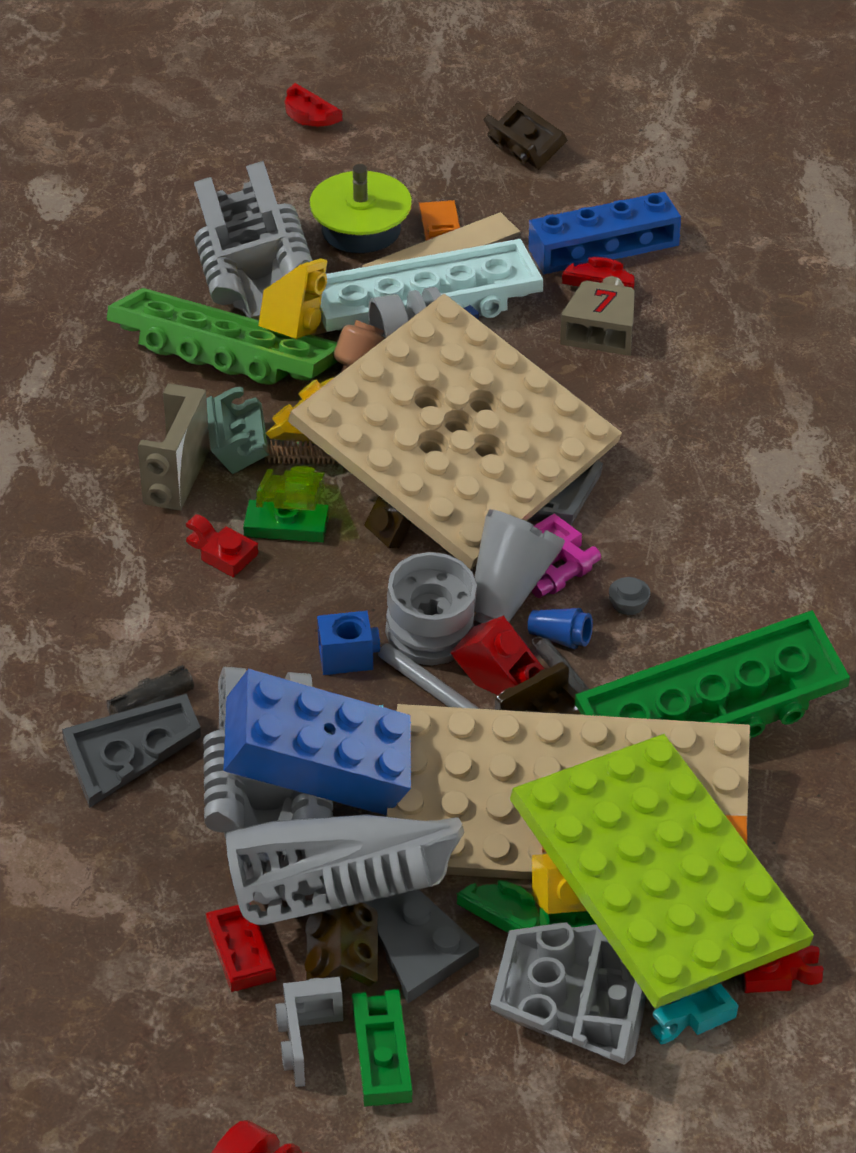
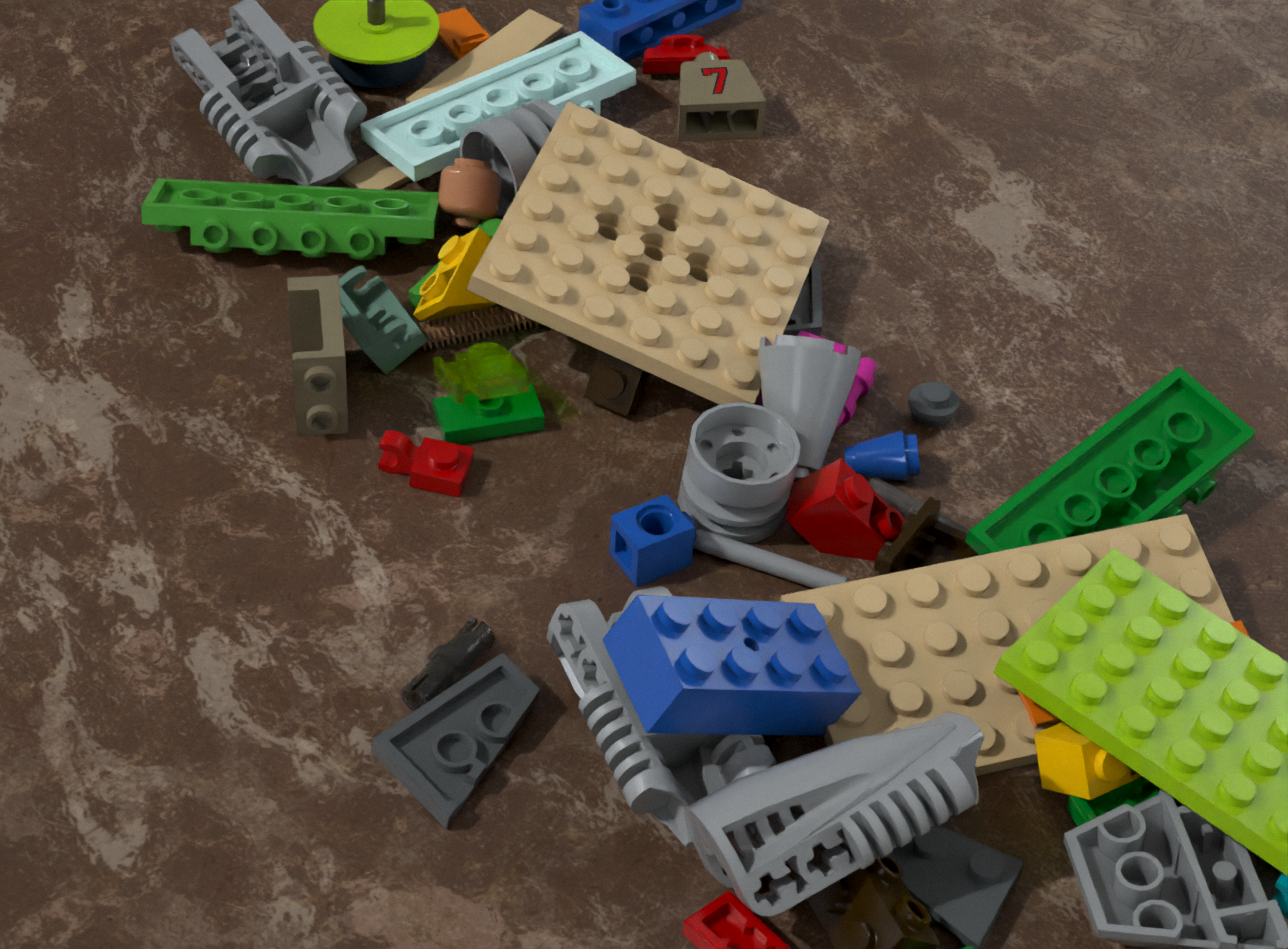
camera: 25 degrees left, 0 degrees up
(294, 300) = (366, 154): yellow slope -> none
(502, 905) = (1025, 807): green plate -> none

